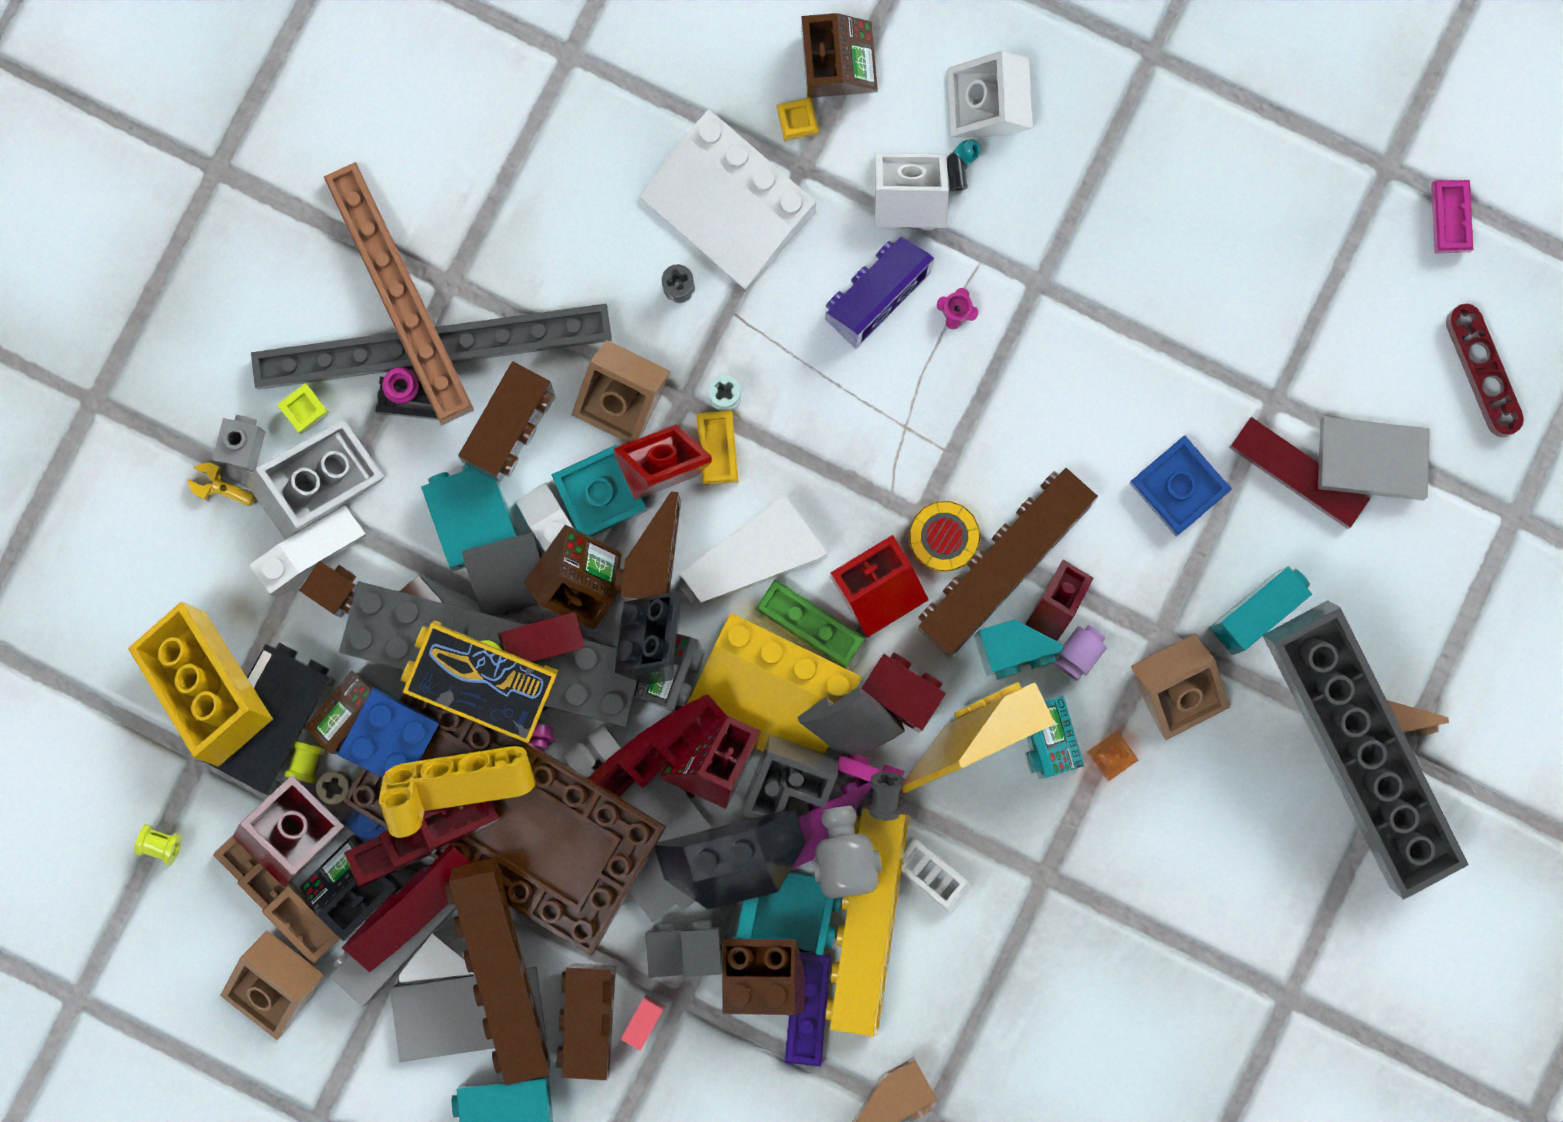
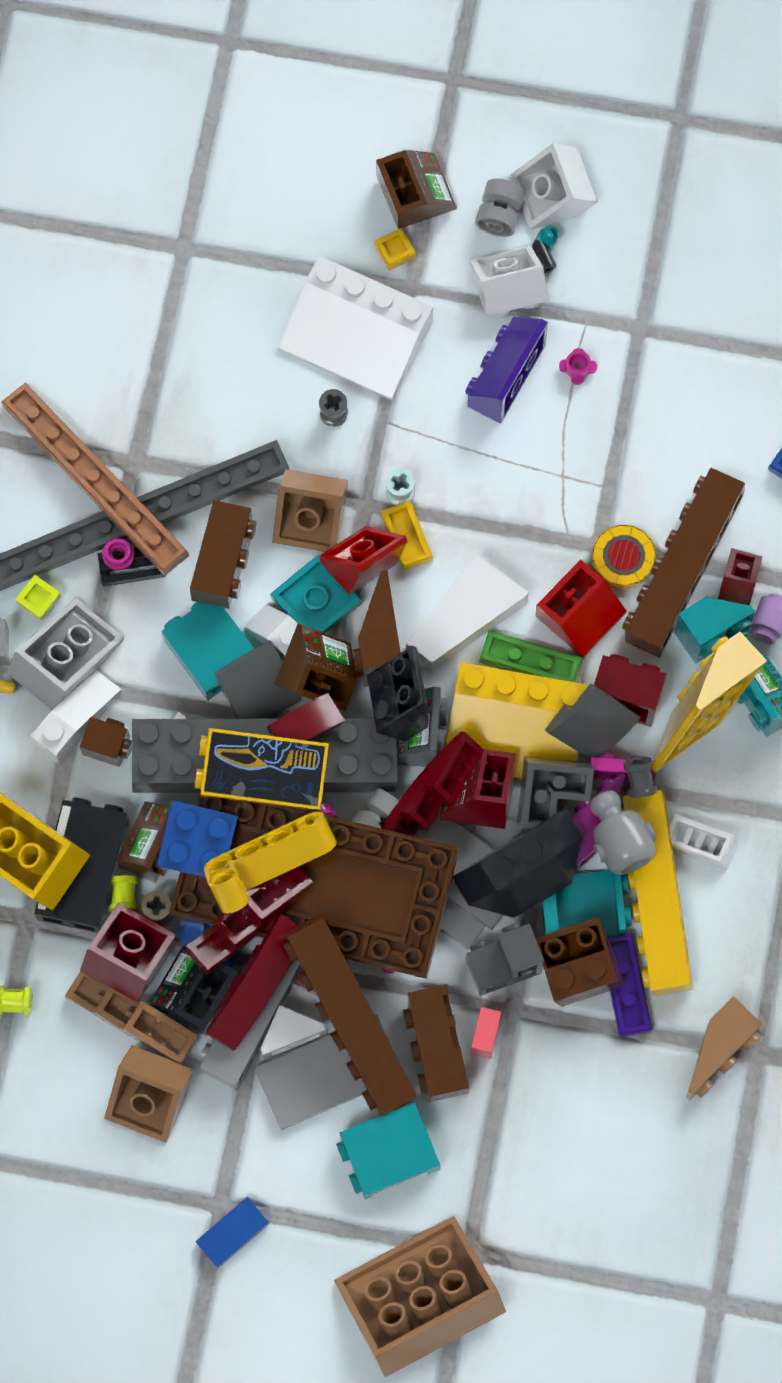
camera: 15 degrees left, 10 degrees down
(926, 95) = (500, 207): none -> light grey wheel

